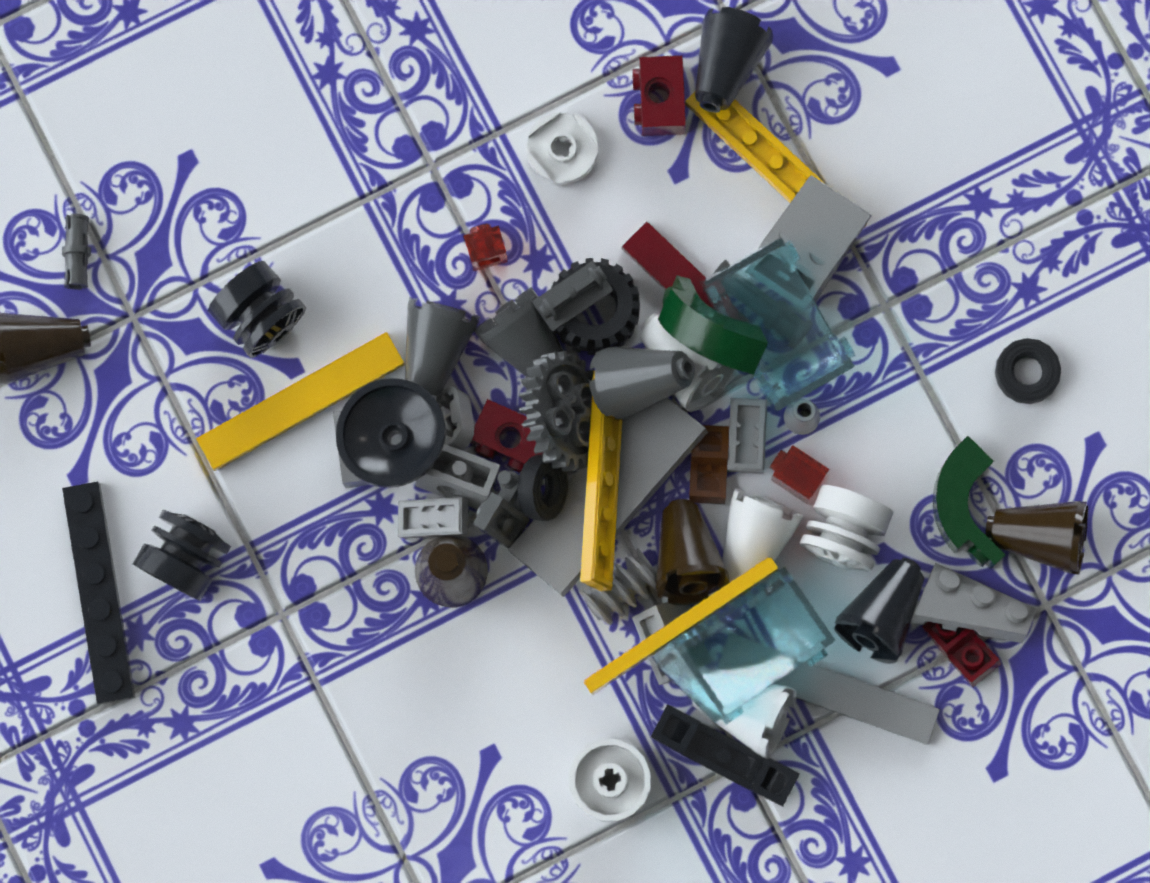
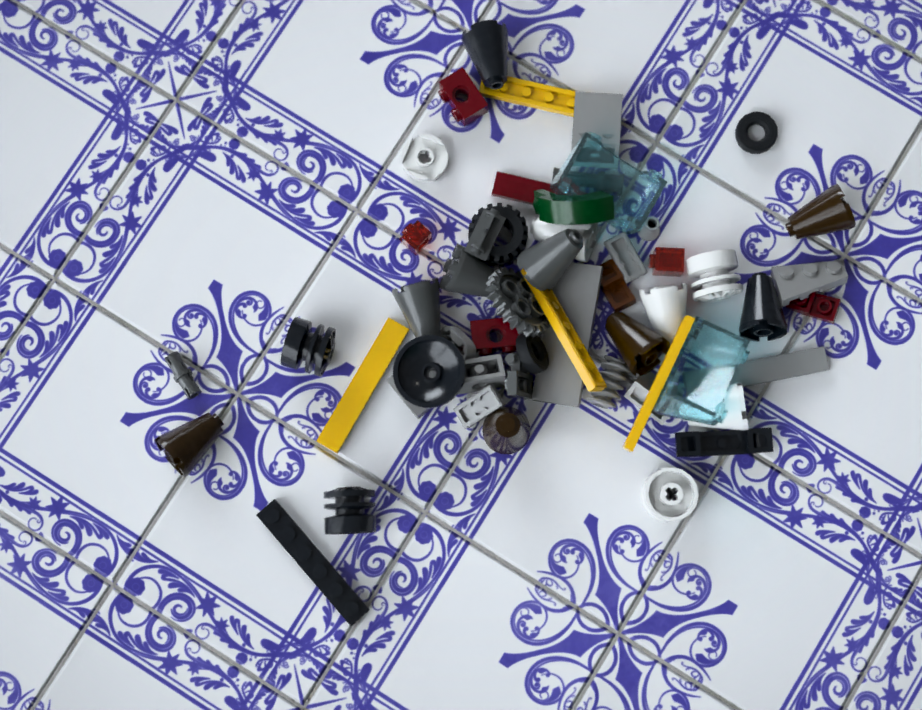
camera: 35 degrees left, 0 degrees up
(950, 503) = (760, 228): dark green arch -> none

